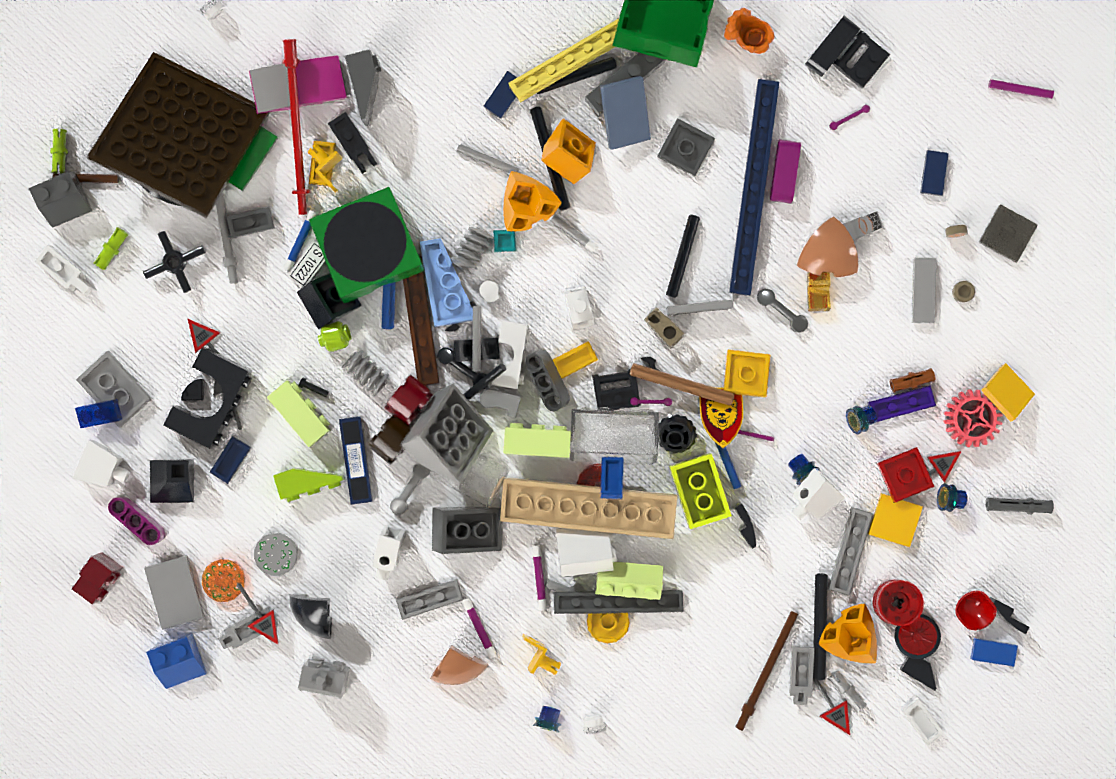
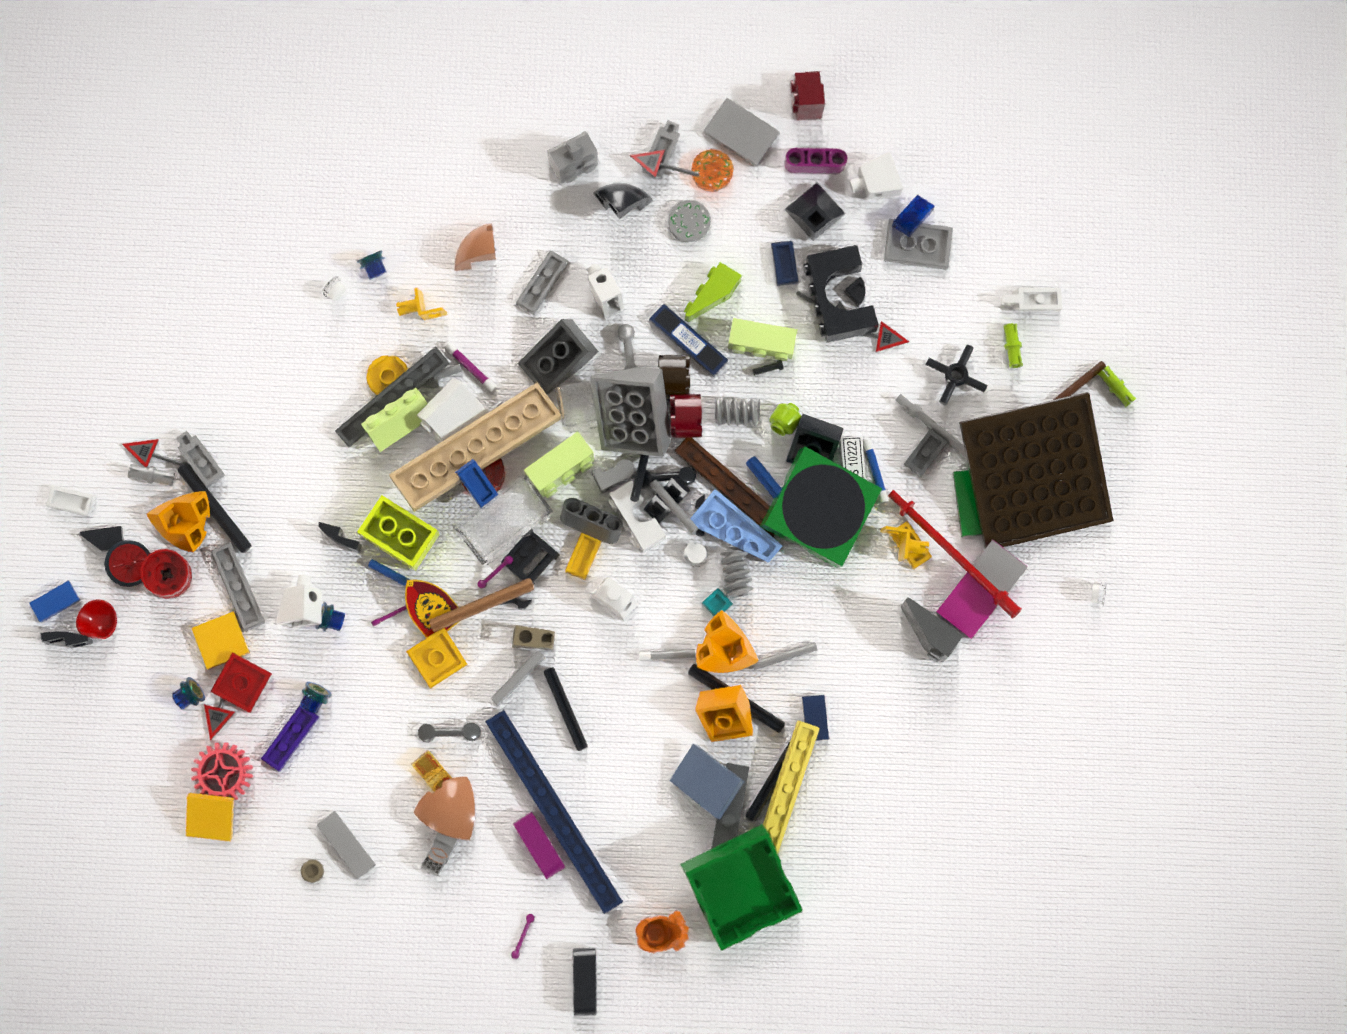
camera: 135 degrees right, 10 degrees down
(60, 199) = (1083, 351): dark grey slope -> none
(176, 661) = (696, 83): blue slope -> none
(351, 140) = (902, 580): black hinge -> none
(479, 628) = (485, 291): magenta bar -> none
(676, 433) = (454, 563): black piece -> none
(686, 147) = (635, 798): dark grey tile -> none
(749, 708) = (220, 399): reddish brown bar -> none
(866, 65) = (544, 991): black plate -> none
(912, 380) = (297, 763): dark orange pin -> none
(934, 173) = (415, 948): dark blue tile -> none
(956, 231) = (358, 914): dark tan tile -> none
(1008, 233) = (313, 950): clear smoke tile -> none
(1019, 505) = (123, 737): dark grey pin -> none

